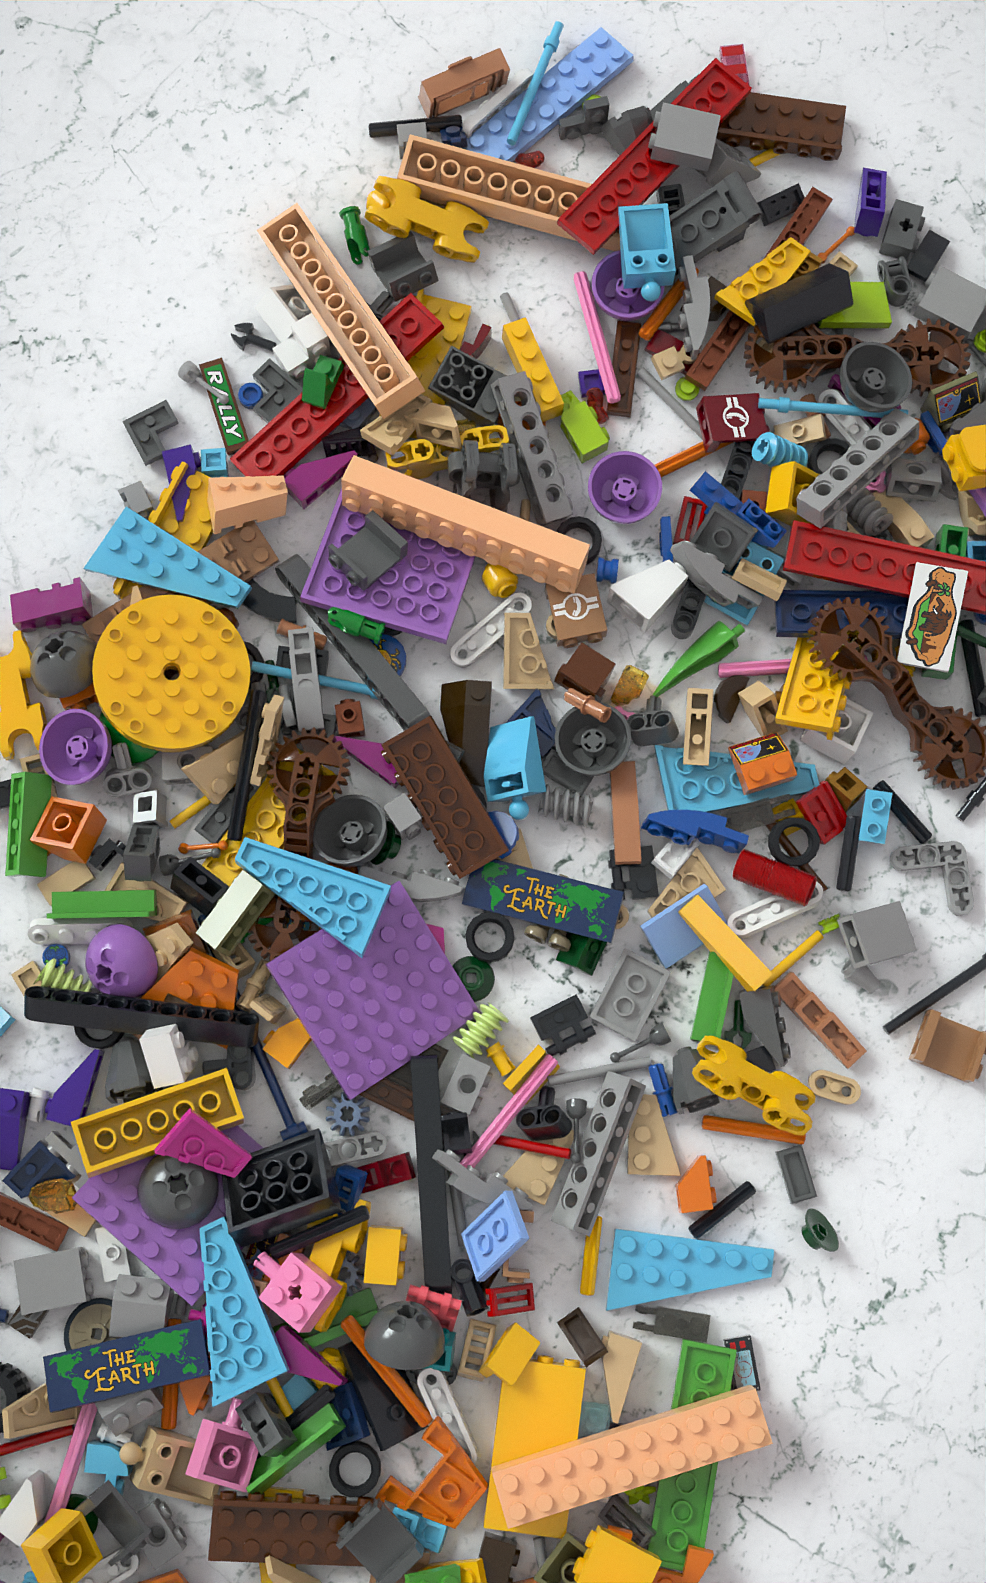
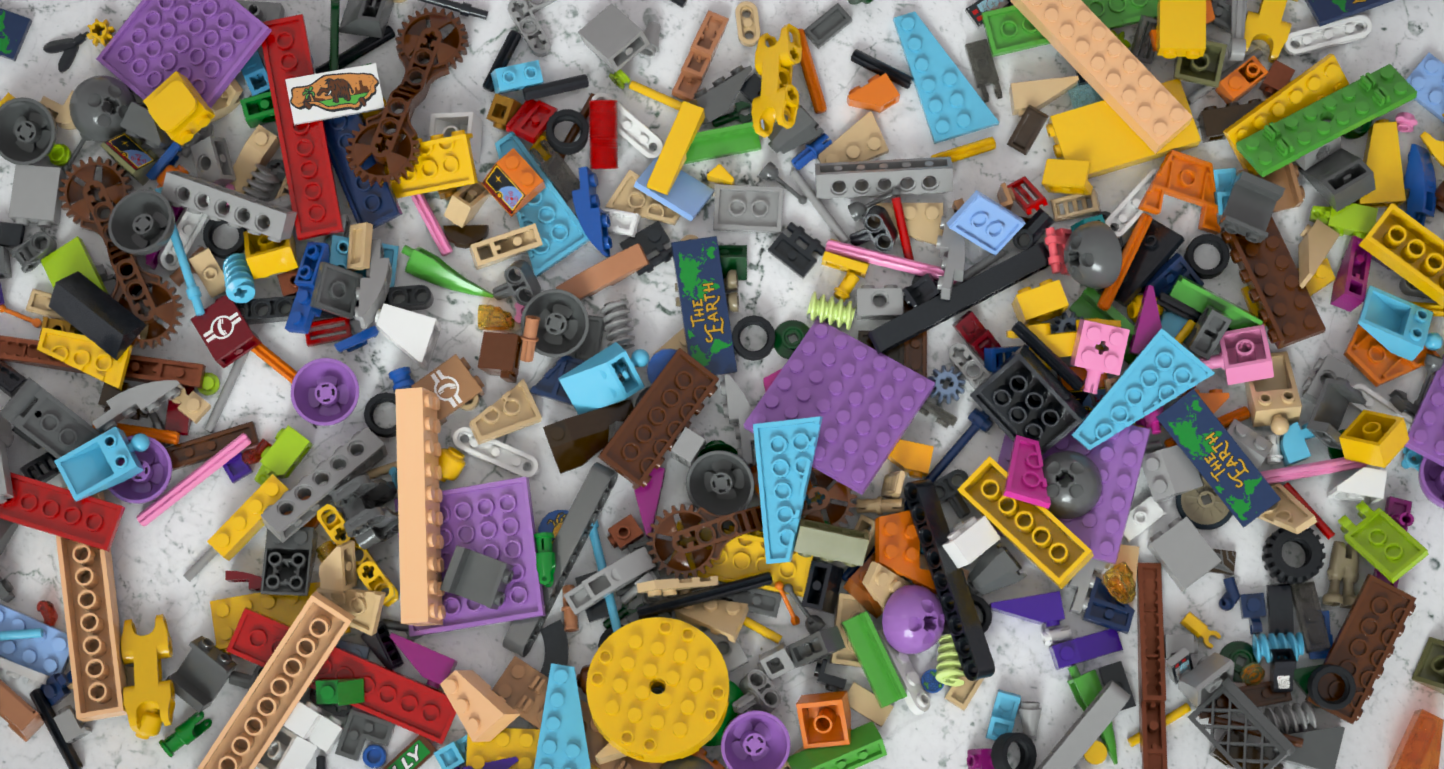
camera: 110 degrees left, 0 degrees up
(678, 981) = (720, 176): none -> yellow slope

